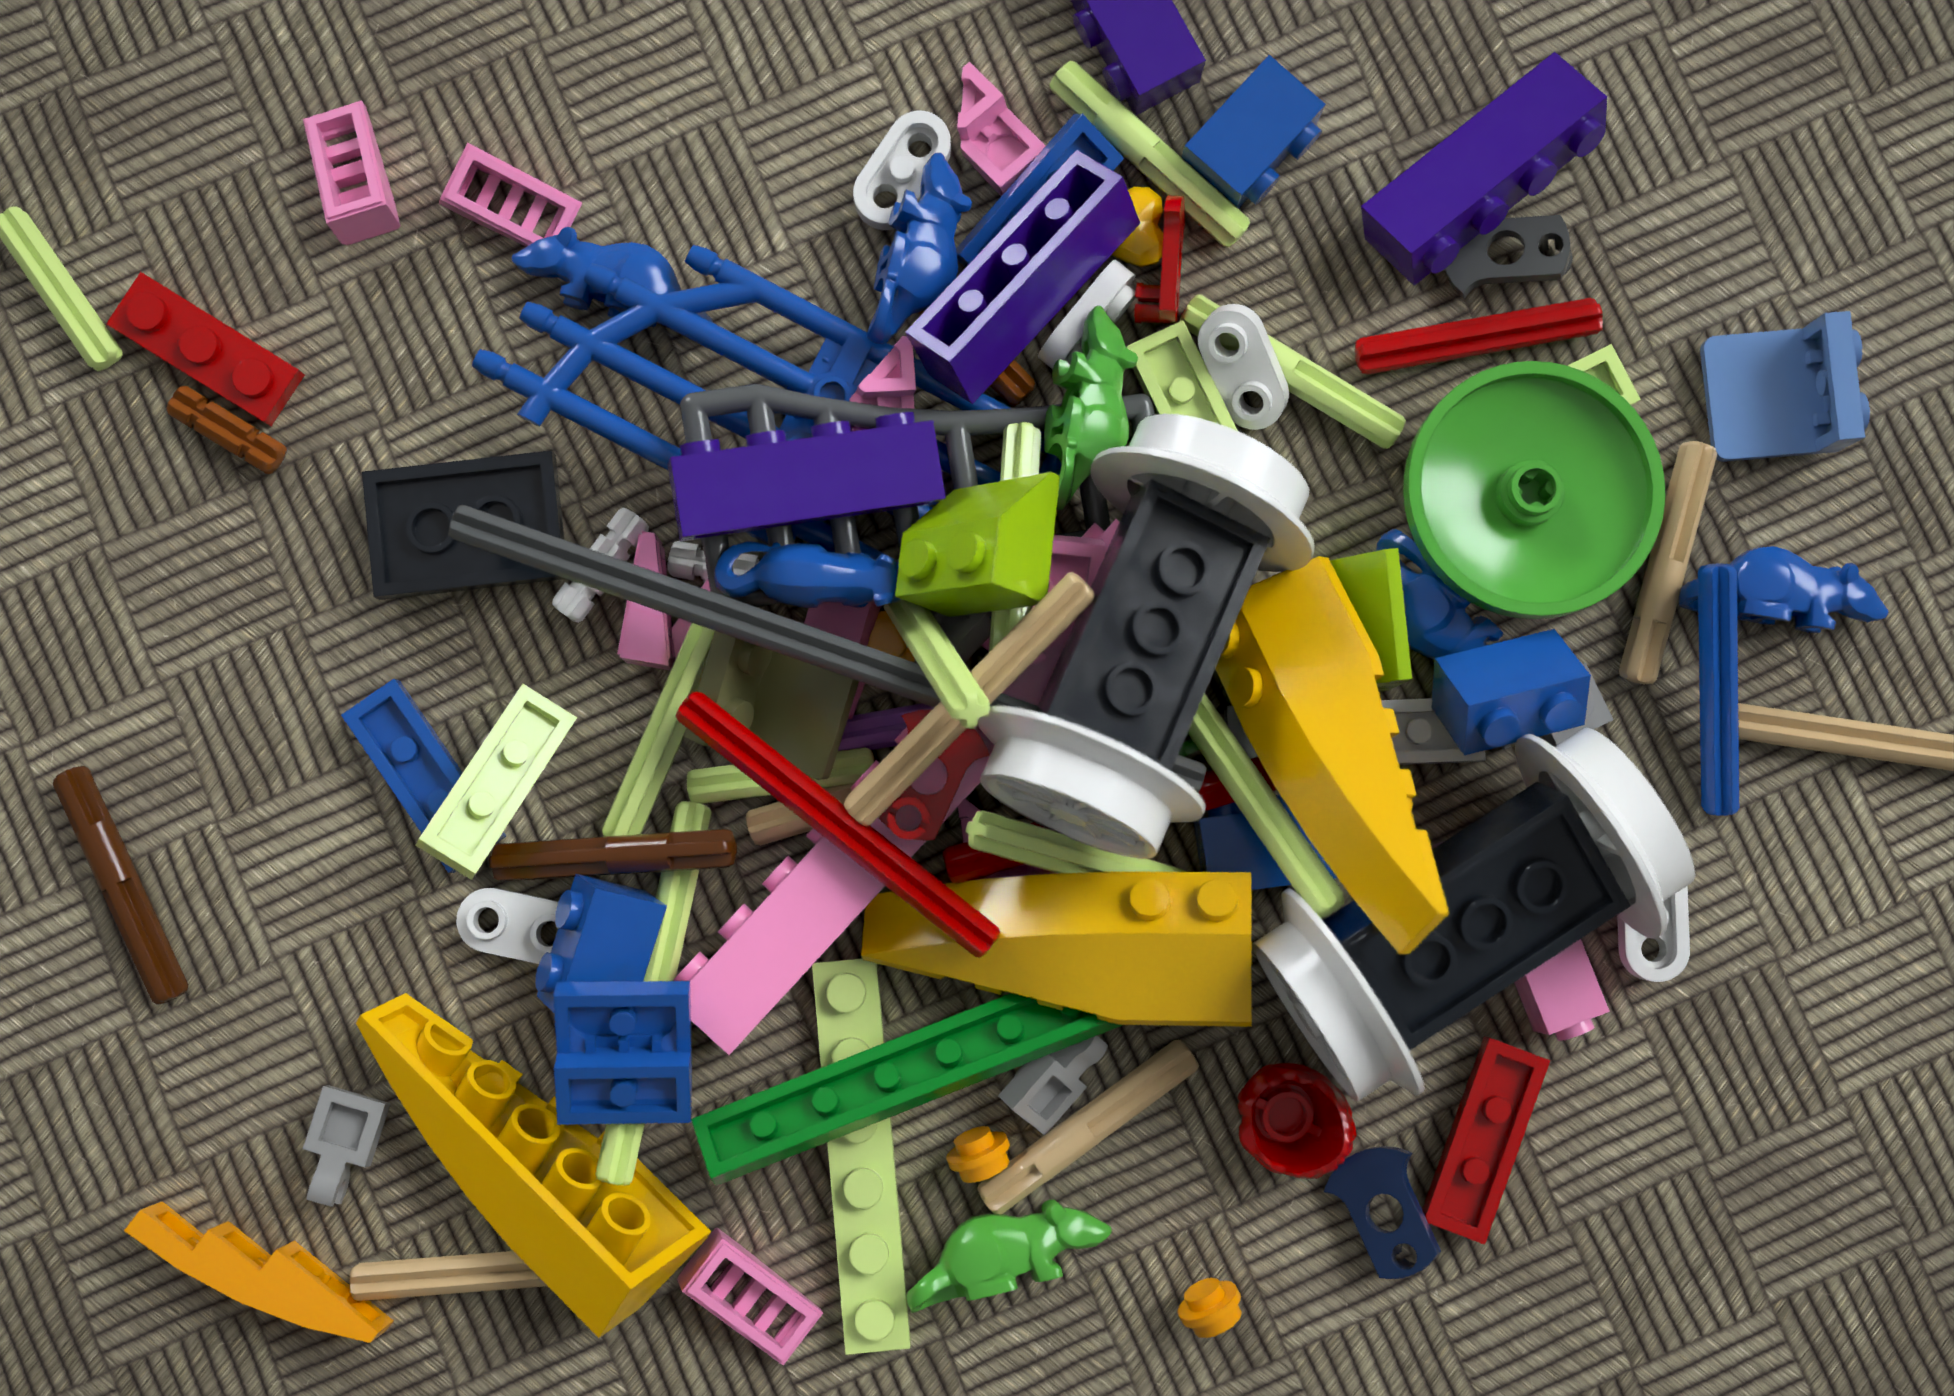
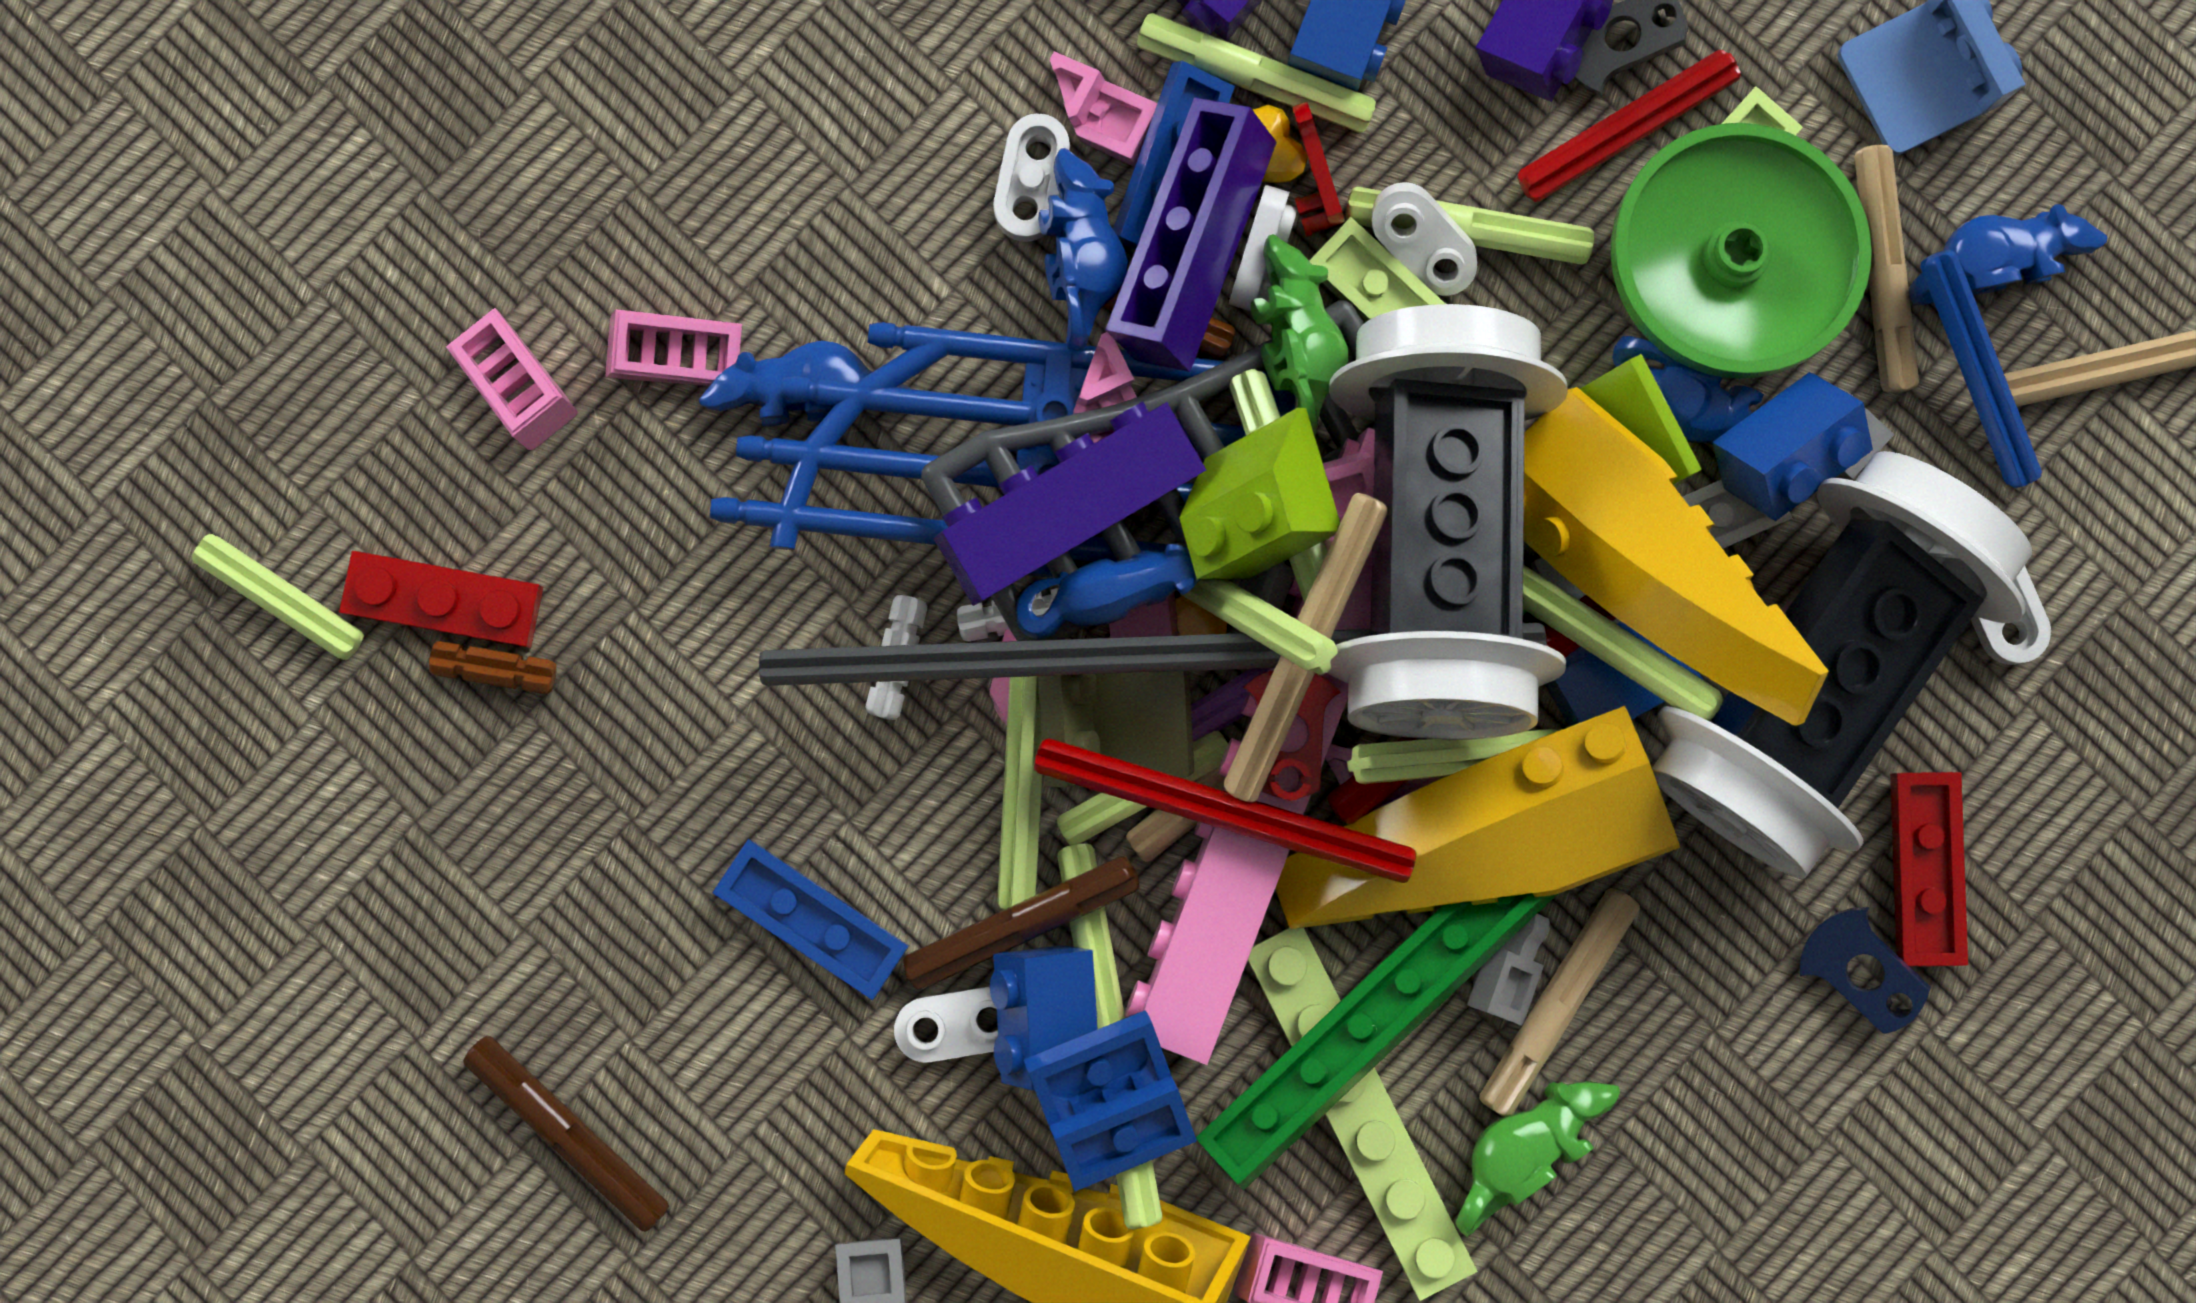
camera: 20 degrees left, 0 degrees up
(412, 515) = (713, 670): black plate -> none
(496, 782) = (885, 897): yellowish green plate -> none
(645, 631) = (966, 700): bright pink slope -> none
(979, 1154) = (1470, 1067): light orange plate -> none
(1210, 1307) = (1739, 1123): light orange plate -> none
(1295, 1121) = (1750, 920): red hair -> none
(1563, 994) = (1950, 708): bright pink brick -> none

